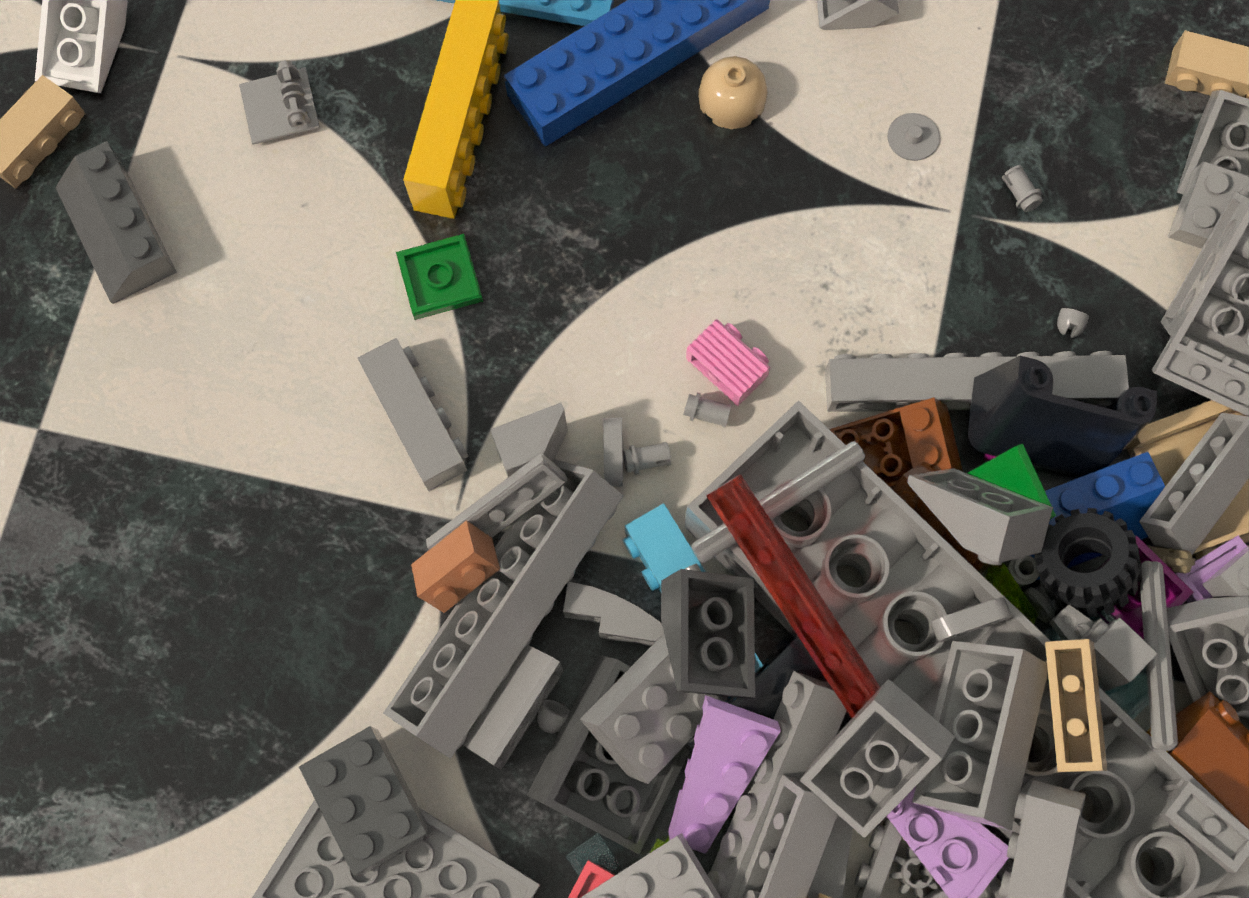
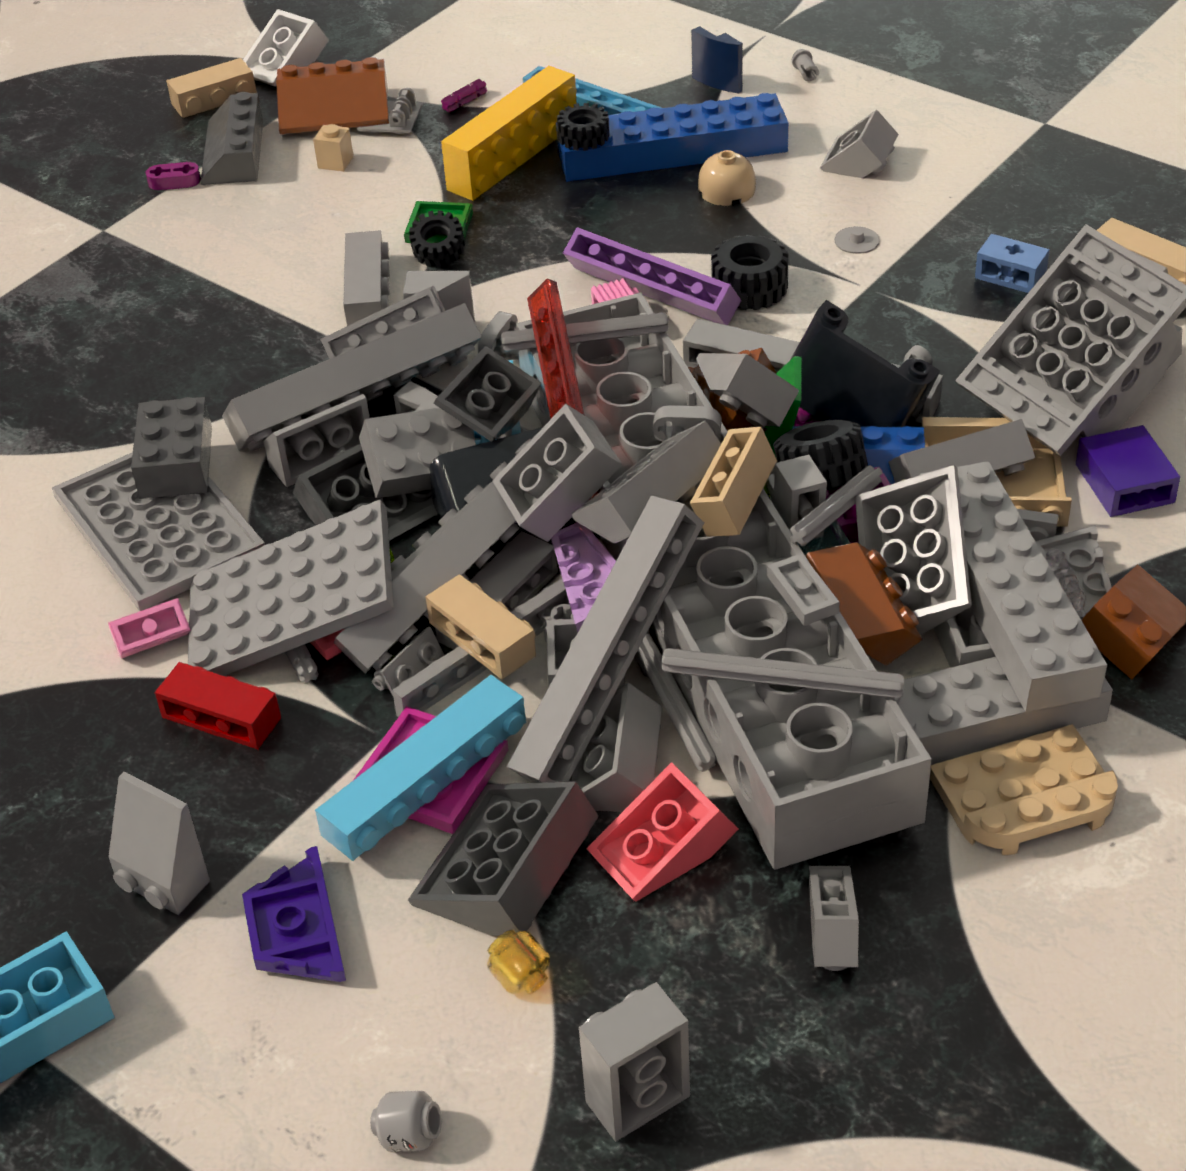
camera: 25 degrees right, 30 degrees down
(72, 306) = (173, 176): none -> magenta beam
(195, 104) = (332, 94): none -> dark orange slope
(248, 196) = (333, 147): none -> tan brick
(348, 37) = (464, 95): none -> magenta axle
(455, 566) = (331, 344): nougat brick -> none
(461, 340) = (433, 226): none -> black tyre
(554, 71) = (583, 126): none -> black tyre
(723, 761) = (447, 474): lavender wing -> none
(741, 302) = (653, 276): none -> medium lavender brick
(846, 225) = (753, 268): none -> black tyre
(1022, 188) = (925, 284): light grey pin -> none
(1103, 131) = (1011, 263): none -> medium blue brick

